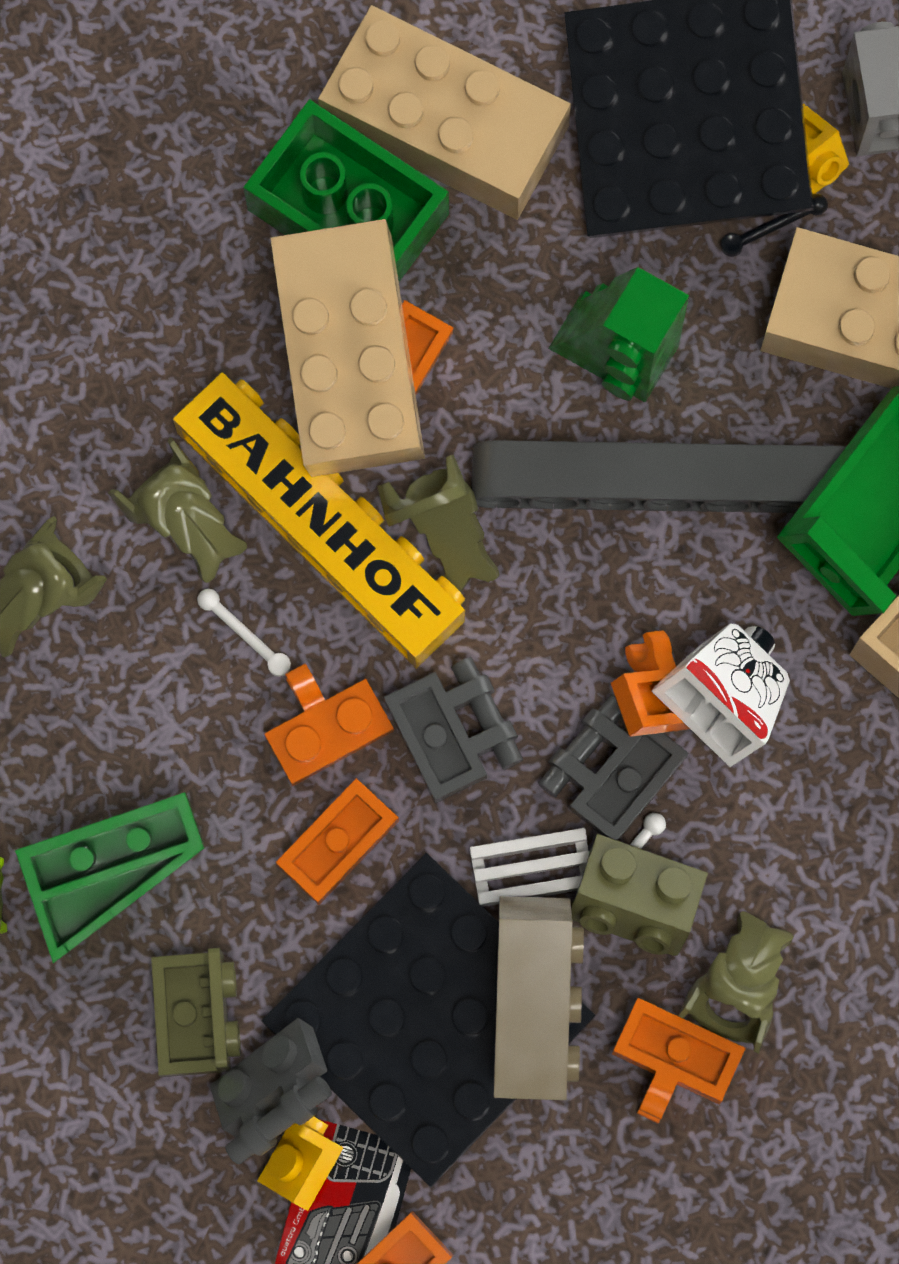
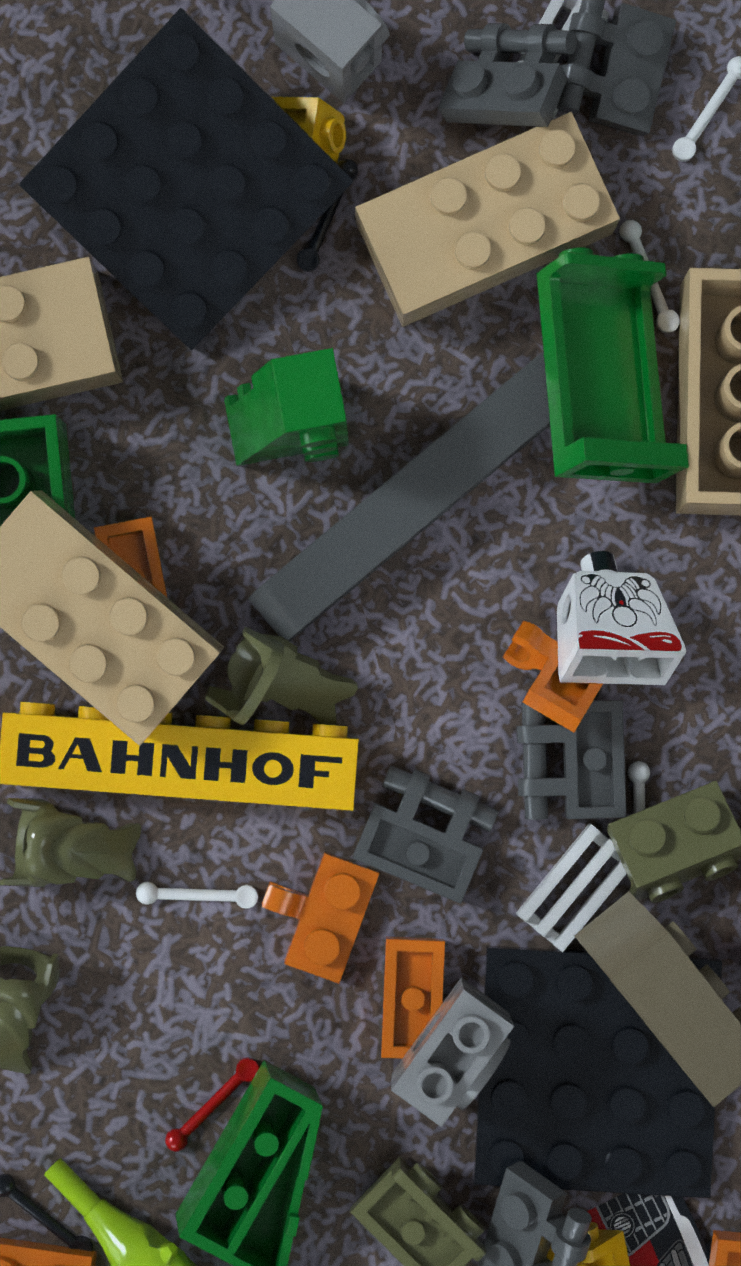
camera: 40 degrees left, 10 degrees up
(69, 797) = (177, 1139): none -> red hinge
(334, 892) = (454, 1054): none -> light grey brick

